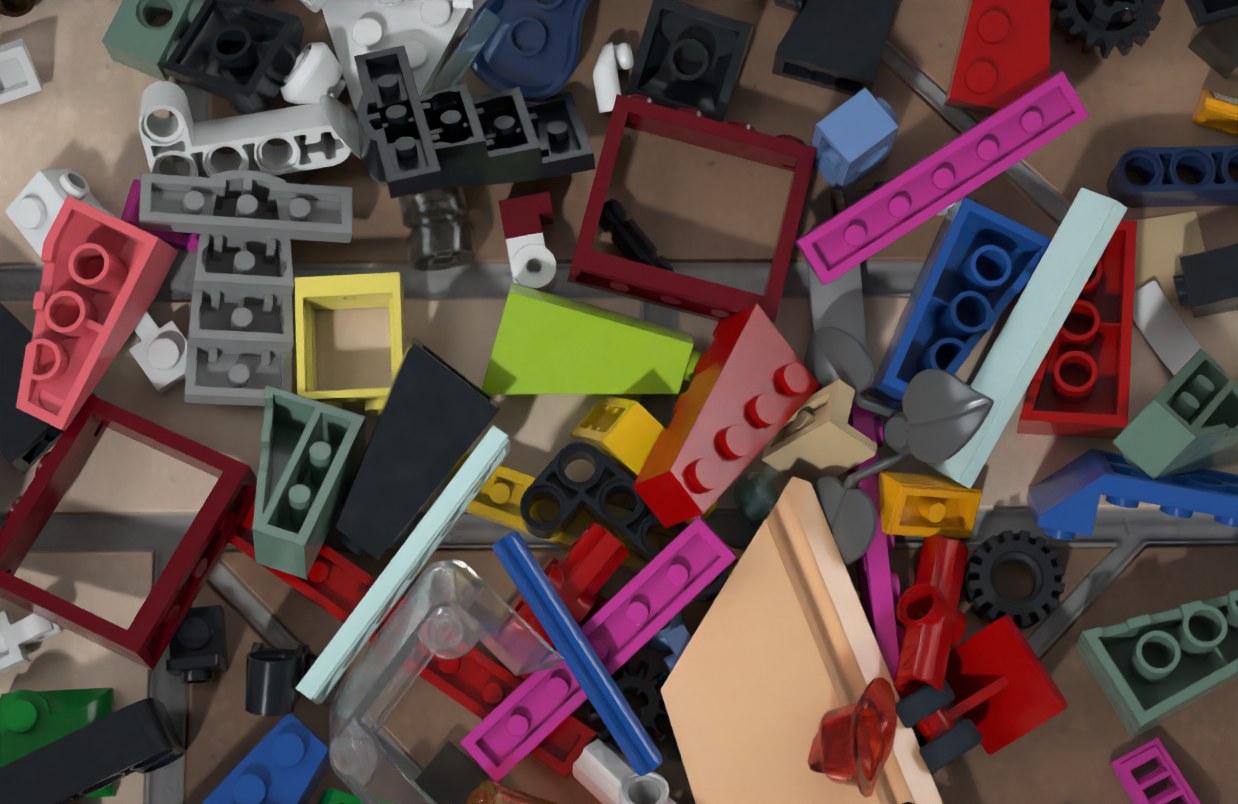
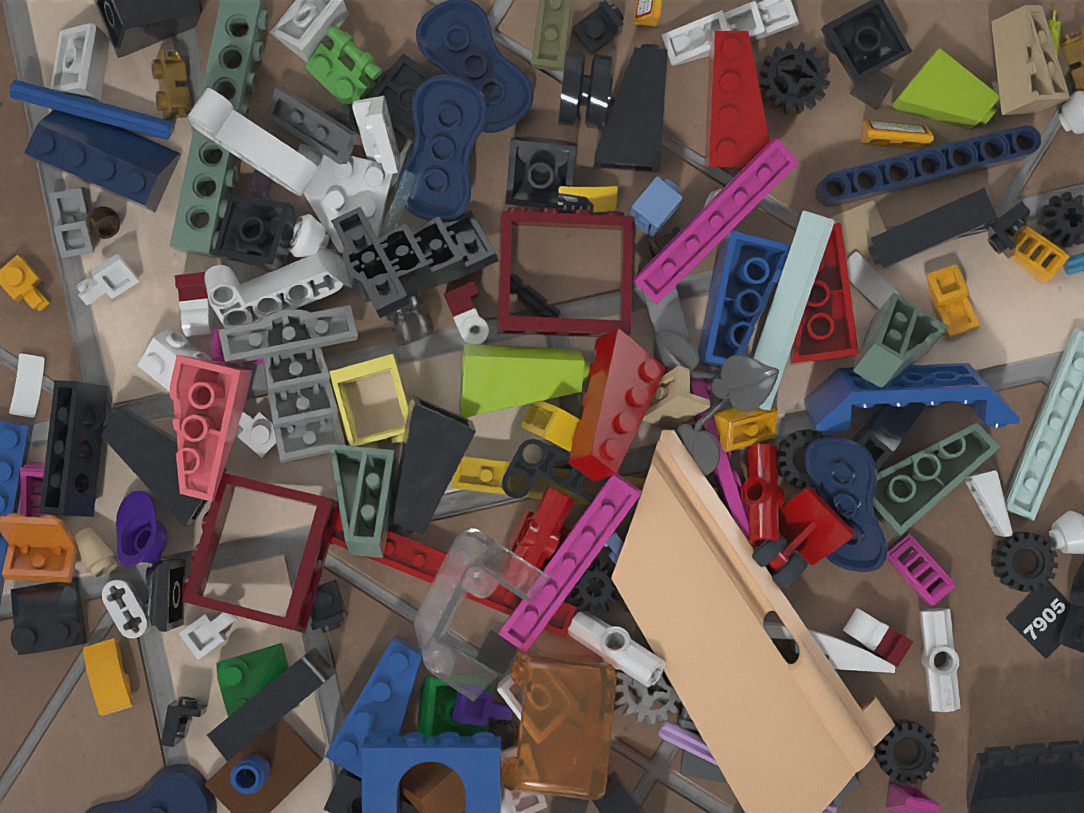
camera: 15 degrees left, 10 degrees up
(117, 143) = (196, 310): none -> leg
(273, 677) = (379, 620): black piece -> none
(405, 566) = (440, 536): light aqua tile -> none
(578, 653) = (557, 570): blue axle -> none
(605, 73) = (490, 195): white arm -> none
(755, 497) = (643, 444): clear light blue cylinder -> none
(763, 112) = (587, 198): none -> yellow sticker
(857, 738) = (735, 586): clear red piece -> none
(1067, 612) = (846, 480): none -> dark blue plate
(1142, 565) = (887, 429): none -> black slope

